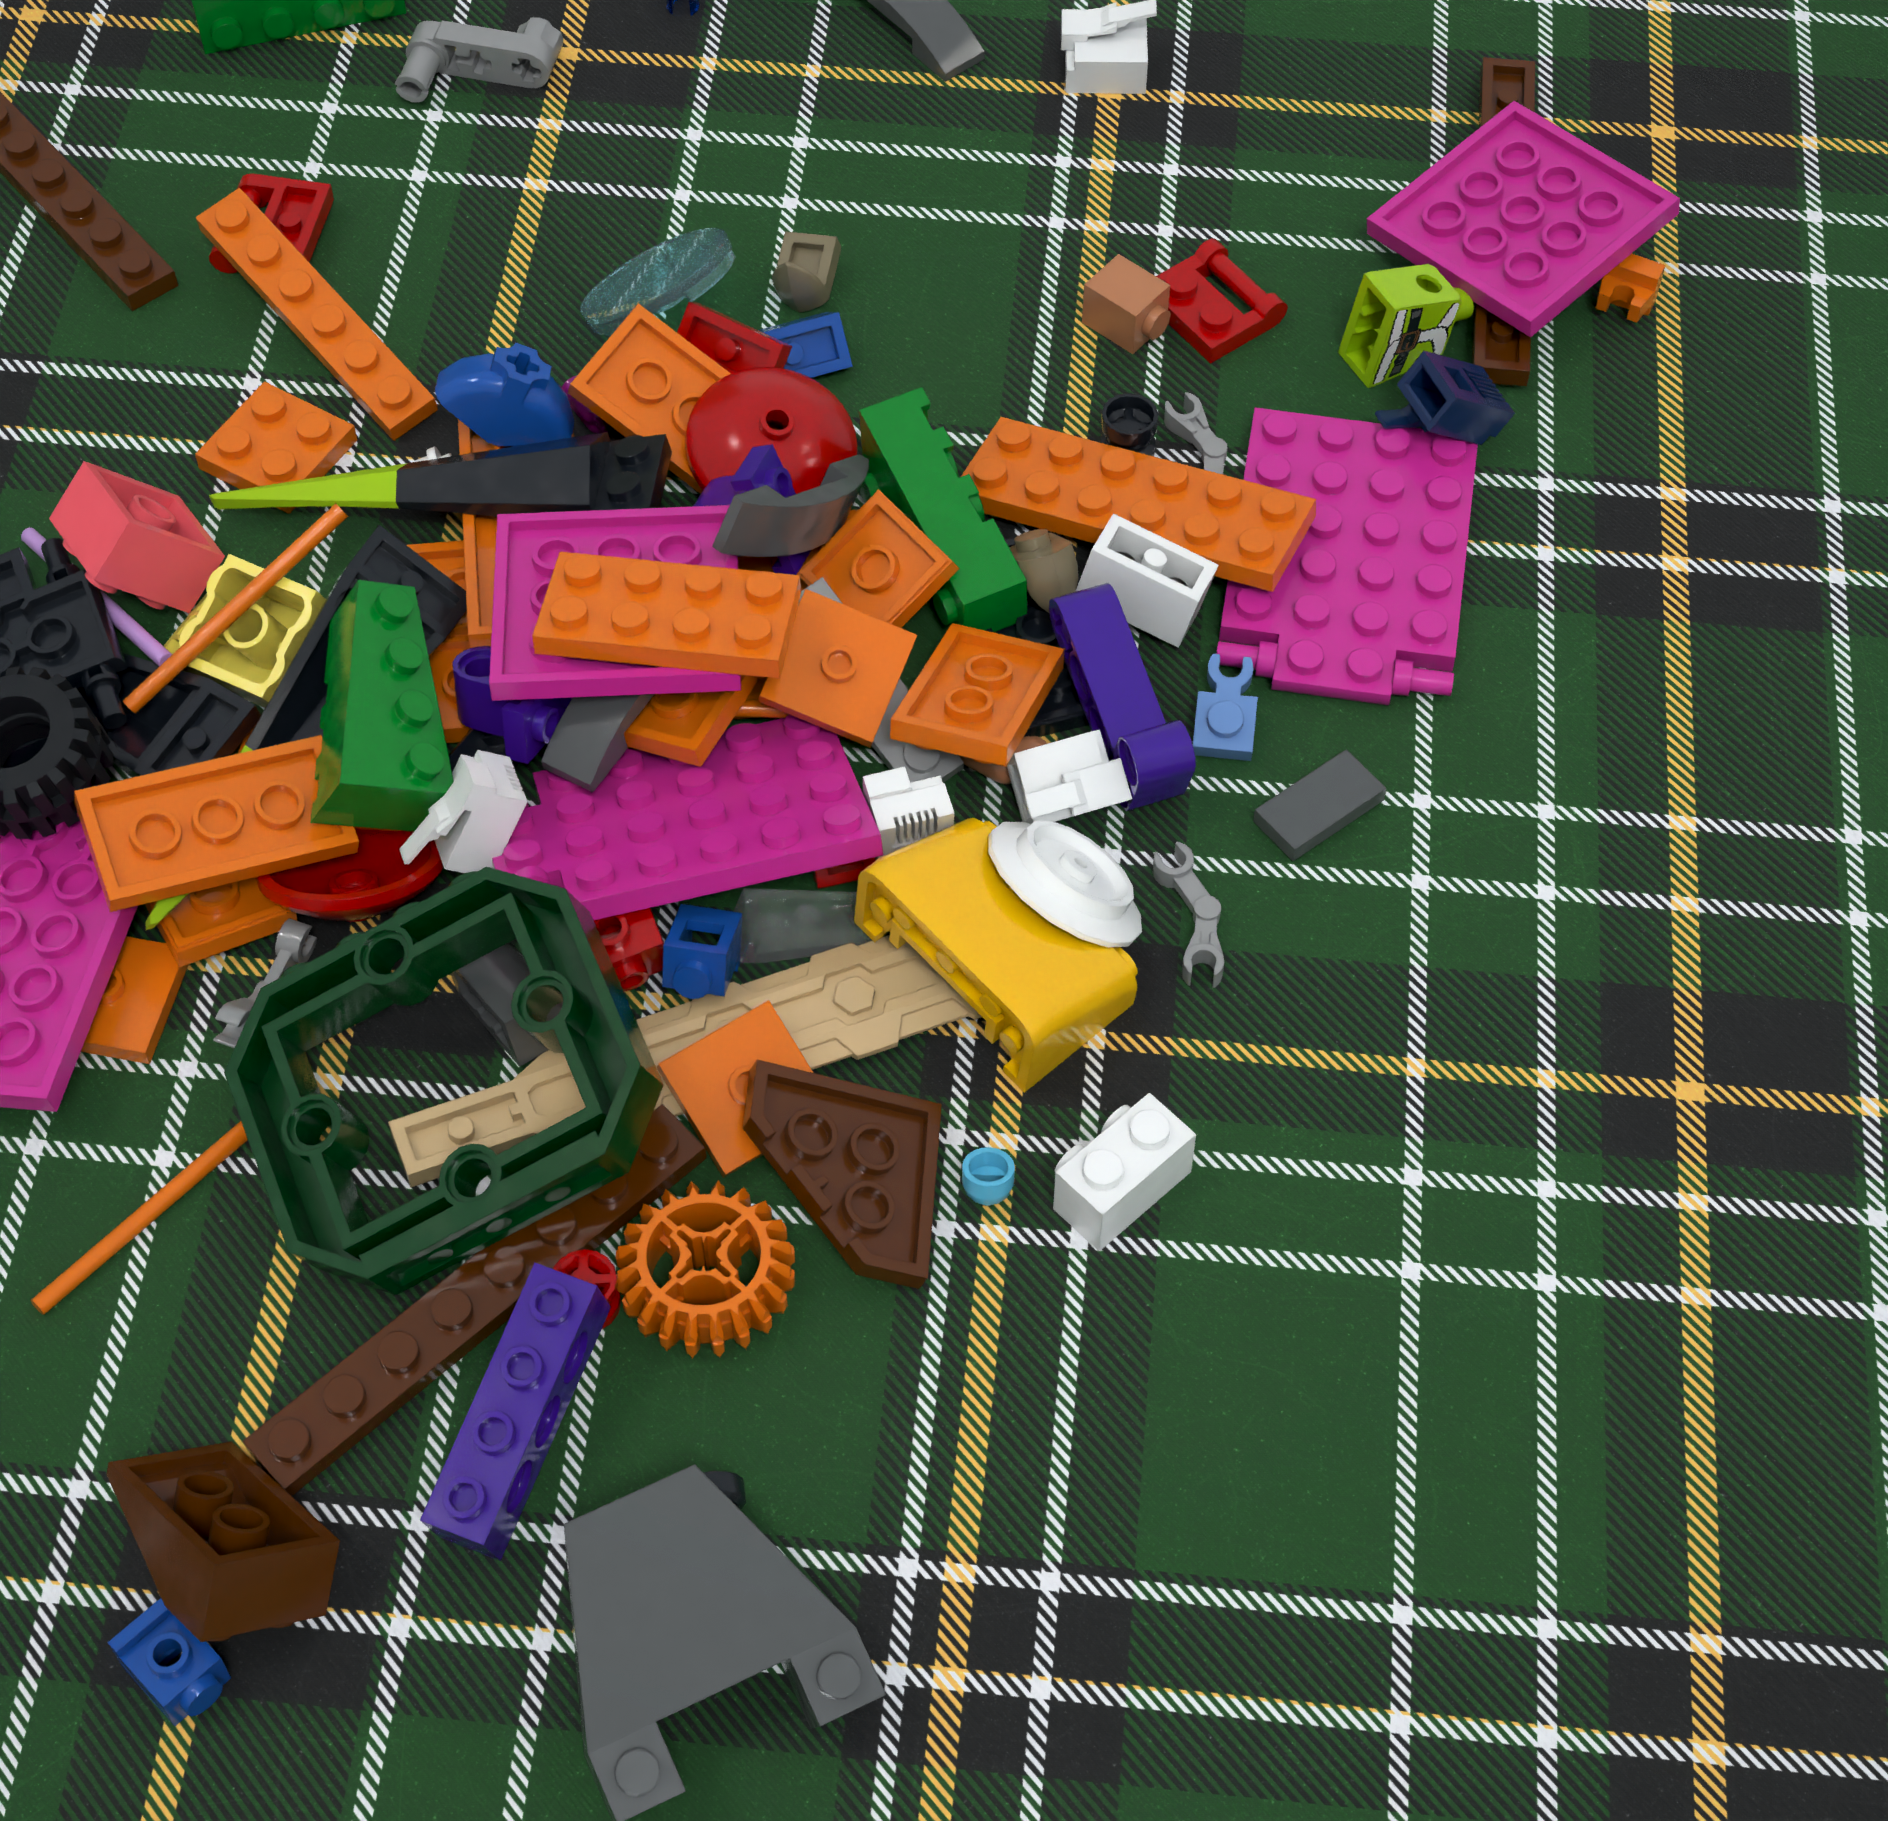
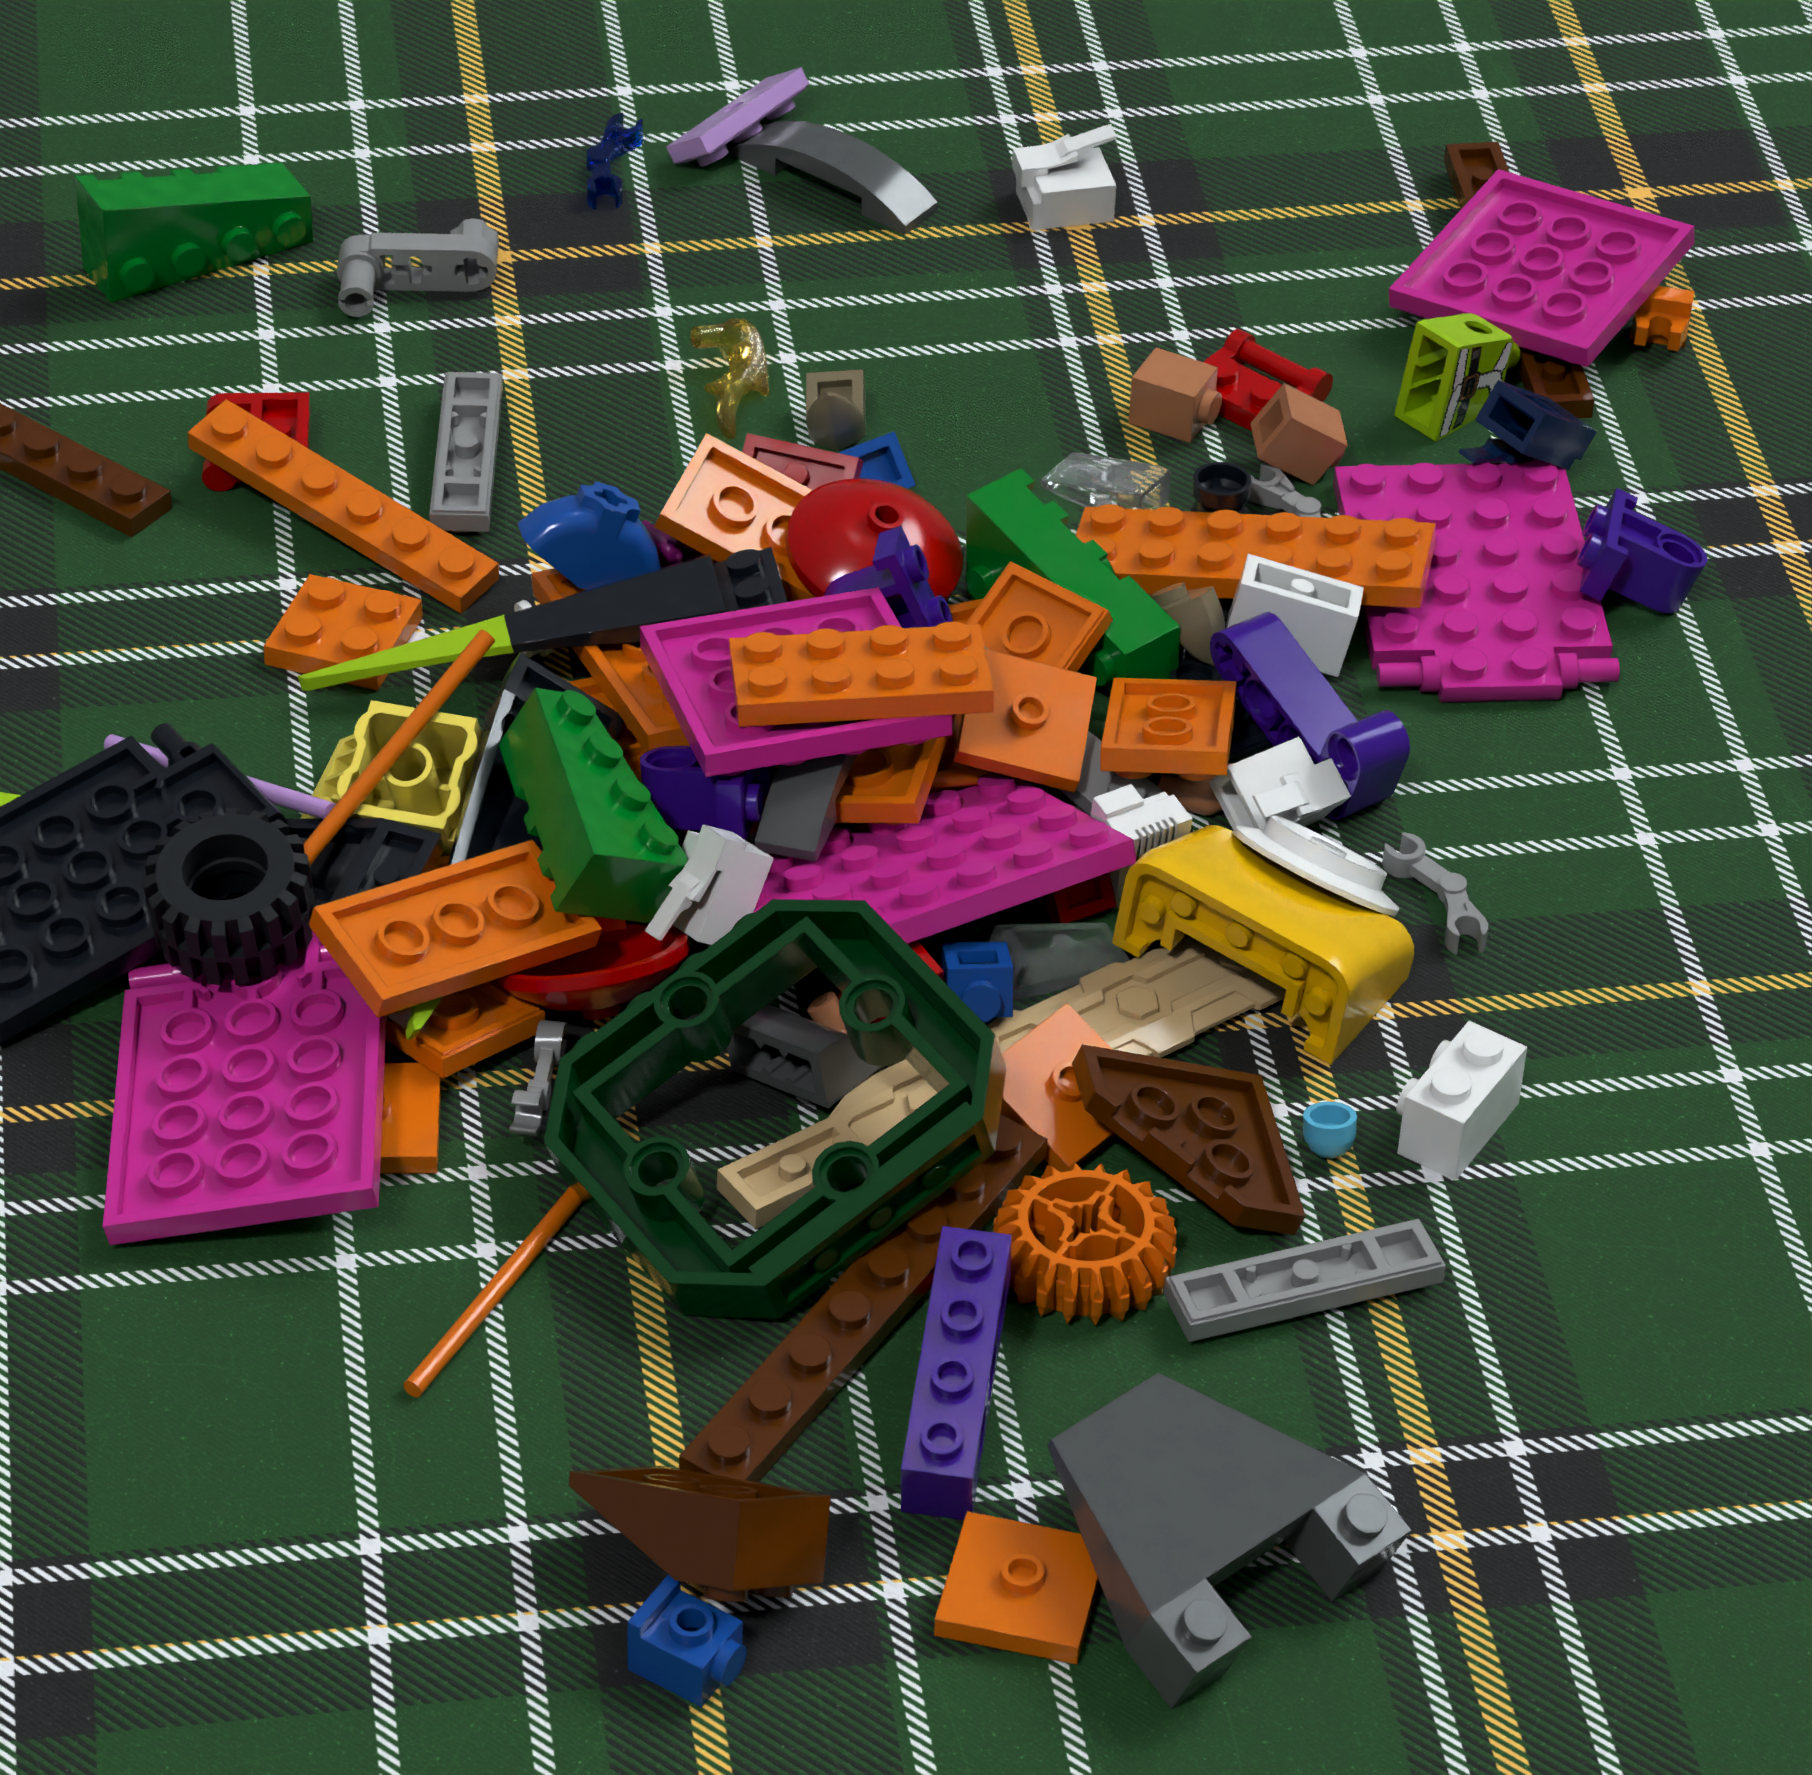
camera: 15 degrees left, 15 degrees down
(135, 538) = (253, 712): coral brick -> none
(452, 268) = (466, 452): none -> light grey plate
(506, 1657) = (1018, 1589): none -> orange plate
(659, 278) = (671, 439): clear light blue tile -> none
(743, 194) = (747, 363): none -> clear yellow piece
(771, 525) = (937, 589): dark grey slope -> none
(904, 1350) = (1304, 1280): none -> light grey plate
(1034, 393) = (1107, 480): none -> clear slope
(1225, 718) = (1418, 717): medium blue plate -> none
(1227, 370) = (1299, 434): none -> nougat brick
(1319, 805) = (1526, 786): dark grey tile -> none
(1506, 564) = (1637, 556): none -> dark purple pin

